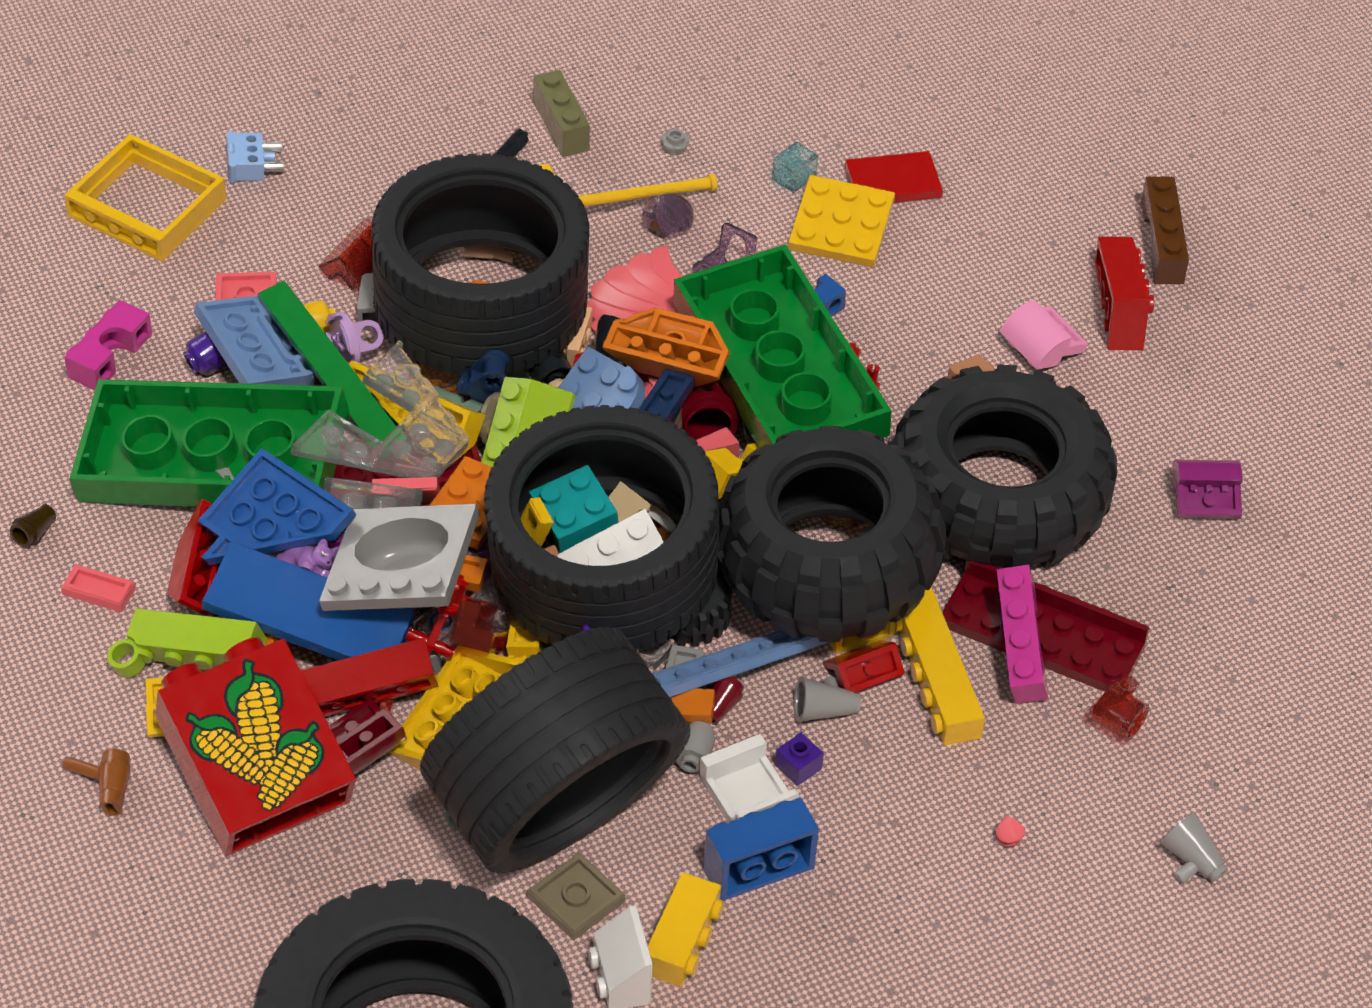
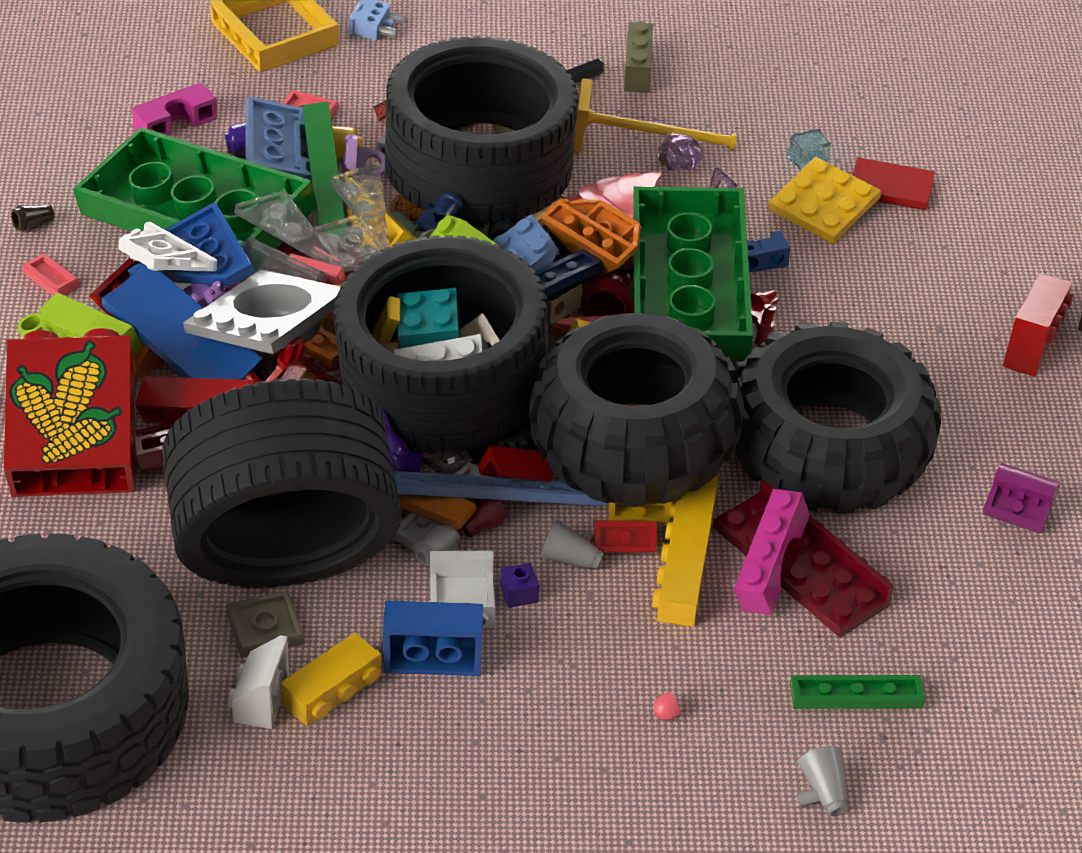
camera: 25 degrees right, 5 degrees down
(246, 525) = (164, 251): none -> white wing
(675, 141) = (722, 105): light grey plate -> none
(725, 632) = (514, 463): none -> red panel
(1041, 335) = (944, 333): bright pink brick -> none
(1120, 710) = (826, 641): clear red piece -> none
(1170, 748) = (856, 691): none -> green plate

